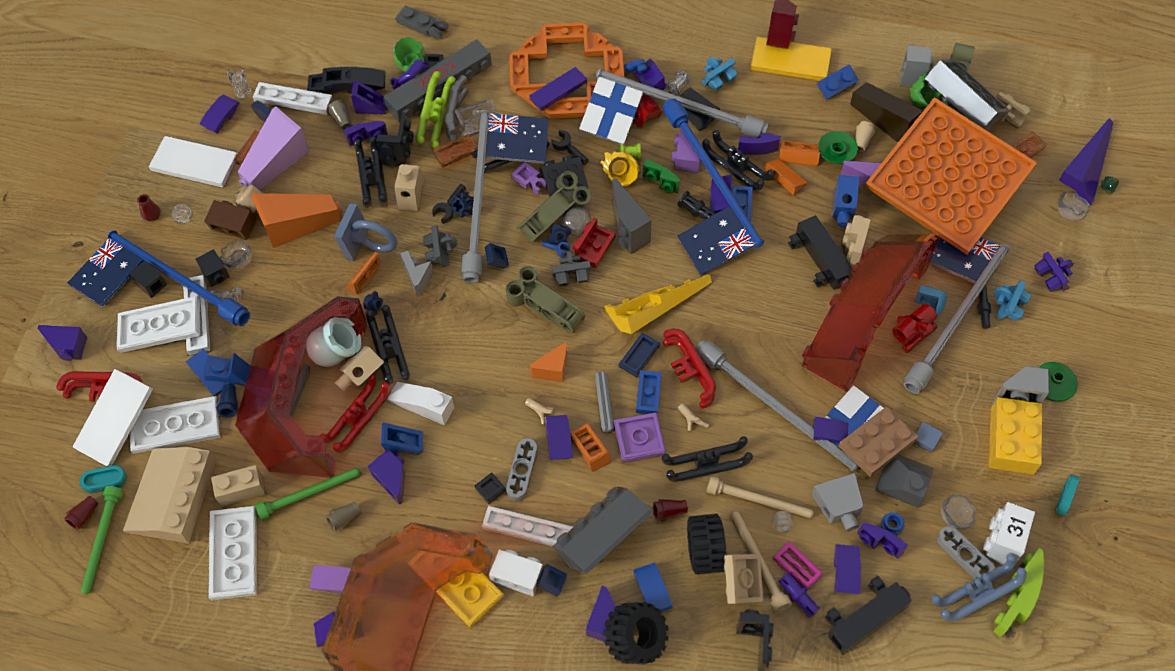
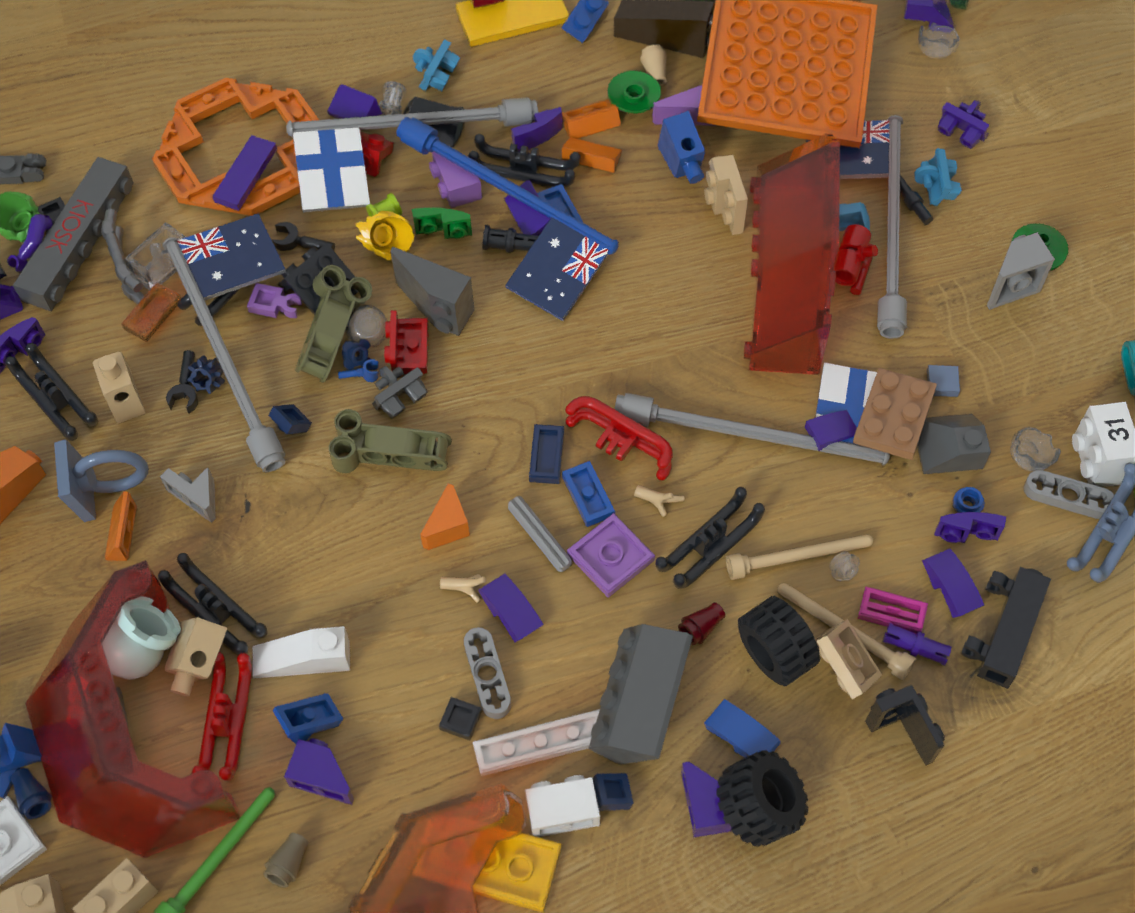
camera: 30 degrees left, 0 degrees up
(373, 302) = (159, 558): dark blue plate -> none
(396, 149) = (68, 345): black bracket -> none
(434, 110) = (94, 272): lime piece -> none
(442, 245) = (207, 440): dark grey hips -> none
(597, 458) = (572, 610): orange slope -> none
(637, 64) = (326, 99): blue arm -> none
(642, 310) = (517, 398): yellow wedge -> none
(824, 252) = (694, 222): black brick -> none
(840, 501) = (895, 506): light grey torso -> none
(1015, 436) = (1040, 329): yellow brick -> none

